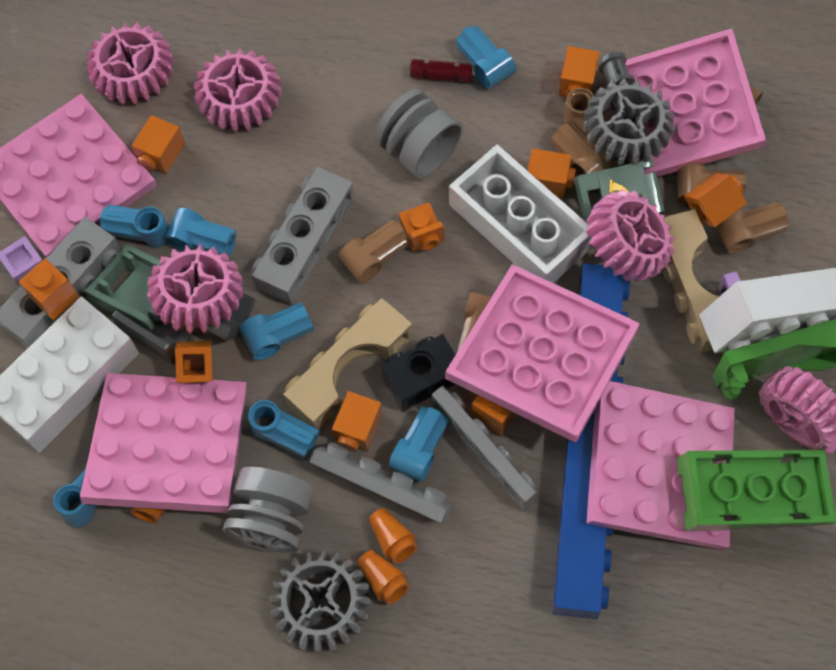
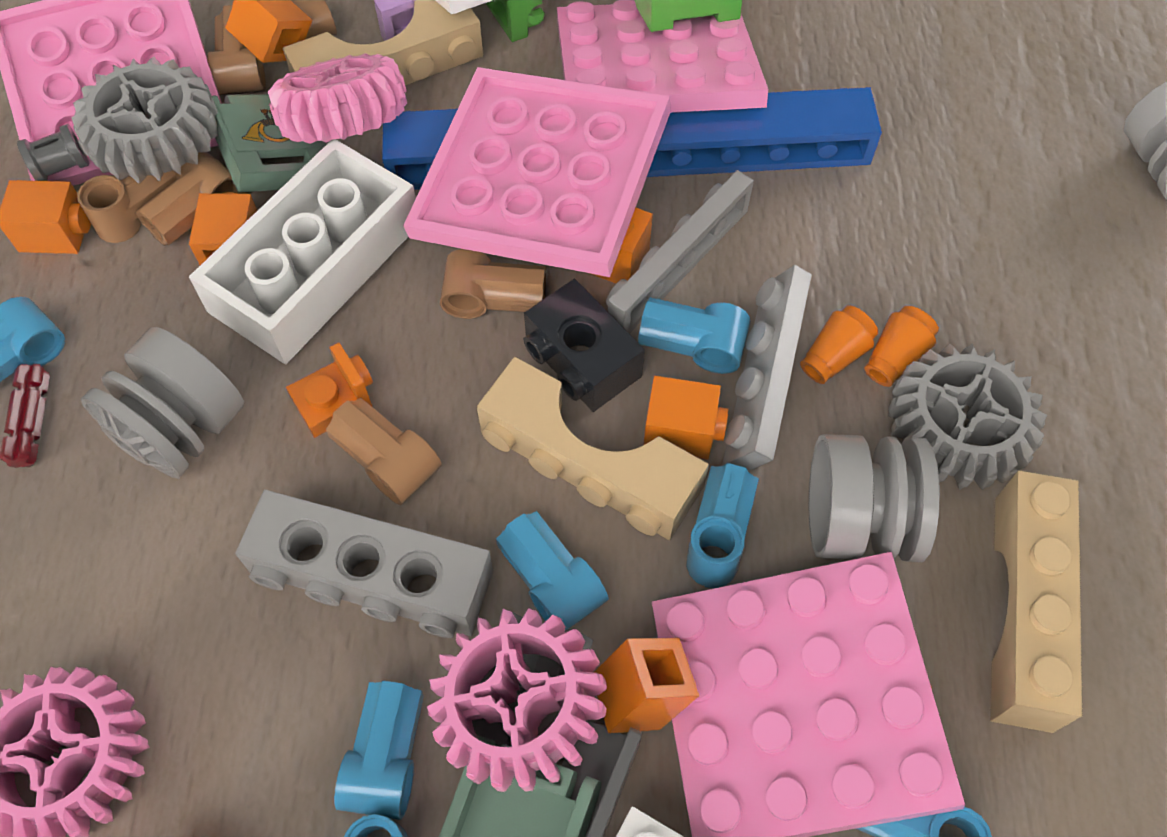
camera: 105 degrees left, 5 degrees down
(189, 596) = (1039, 654): none -> tan arch

